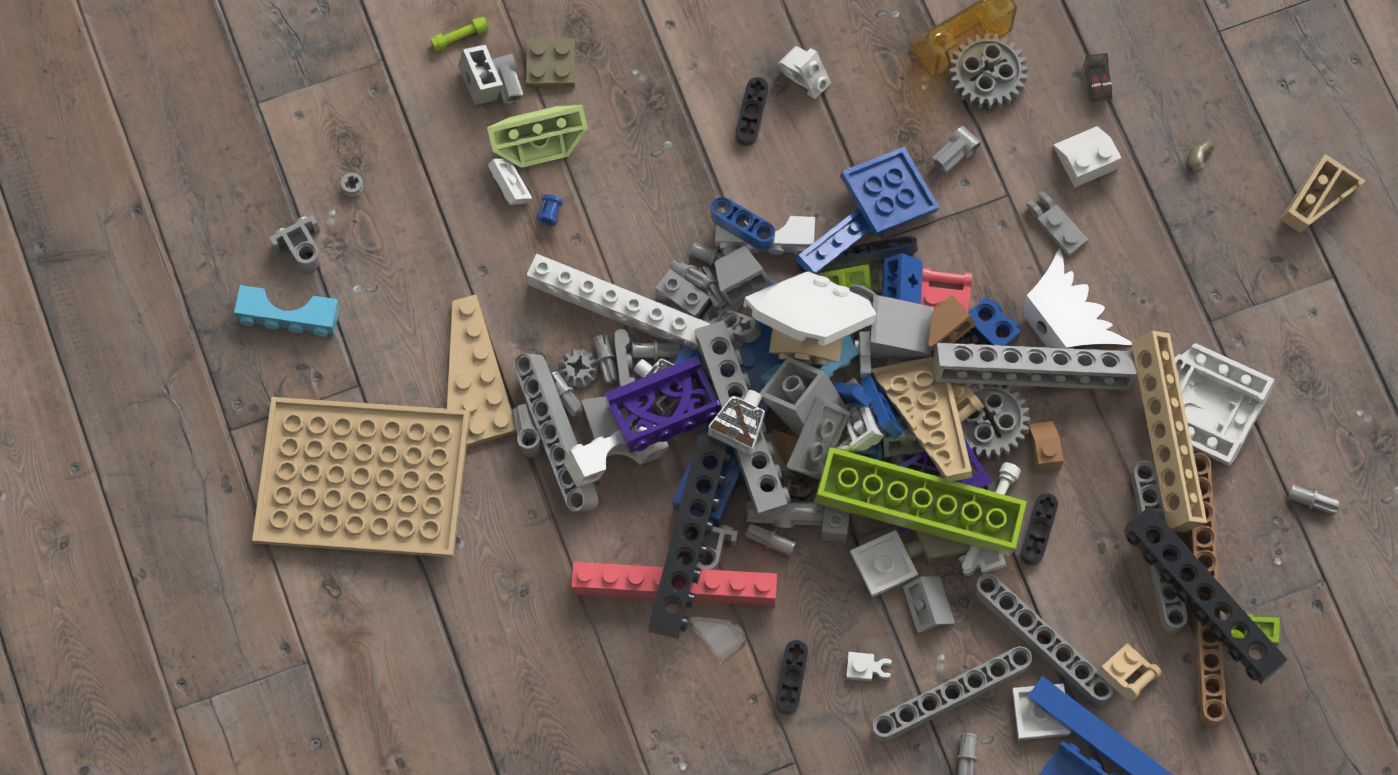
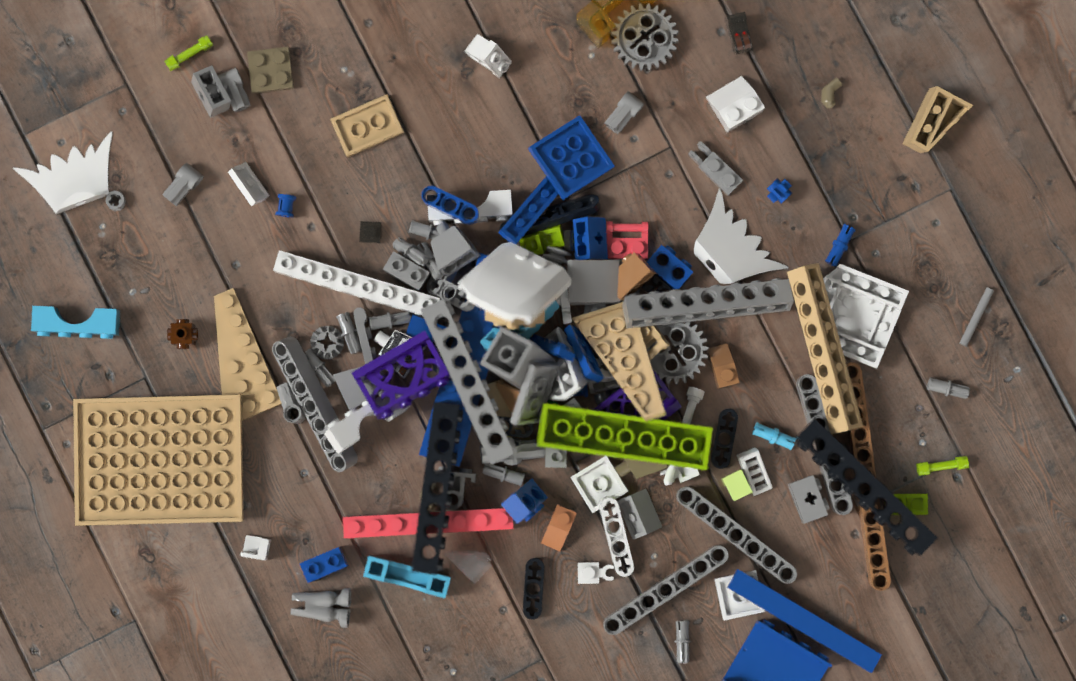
camera: 10 degrees left, 15 degrees up
(299, 242) = (77, 258): light grey pin -> none
(306, 160) = (72, 182): none -> white piece
(410, 337) = (189, 338): none -> reddish brown brick
(437, 170) = (186, 180): none -> light grey piece
(464, 592) = (256, 547): none -> white panel
(532, 667) = (319, 606): none -> light grey piece
(538, 135) = (267, 139): yellowish green wedge -> none
(543, 618) = (324, 564): none -> blue brick
(644, 251) = (370, 232): none -> clear smoke plate
(655, 134) = (367, 125): none -> tan tile
(659, 650) = (401, 574): none -> medium azure arch
(739, 422) = (467, 390): torso -> none
(749, 101) = (440, 110): black beam -> none
(793, 568) = (525, 502): none -> blue brick
(830, 607) = (558, 527): none -> nougat slope
(898, 625) = (613, 537): none -> white beam
(1049, 580) = (737, 485): none -> yellowish green panel
(1061, 565) = (742, 457): none -> white slope
(1099, 531) = (773, 436): none -> medium azure pin
(1123, 666) = (803, 551): tan plate -> none
(1130, 254) = (779, 190): none -> blue gear
(1131, 621) = (806, 510): none -> light grey brick
(1197, 324) = (840, 245): none -> blue pin
(1321, 587) = (959, 463): none -> lime bar
(1353, 423) = (976, 317): none -> light grey bar

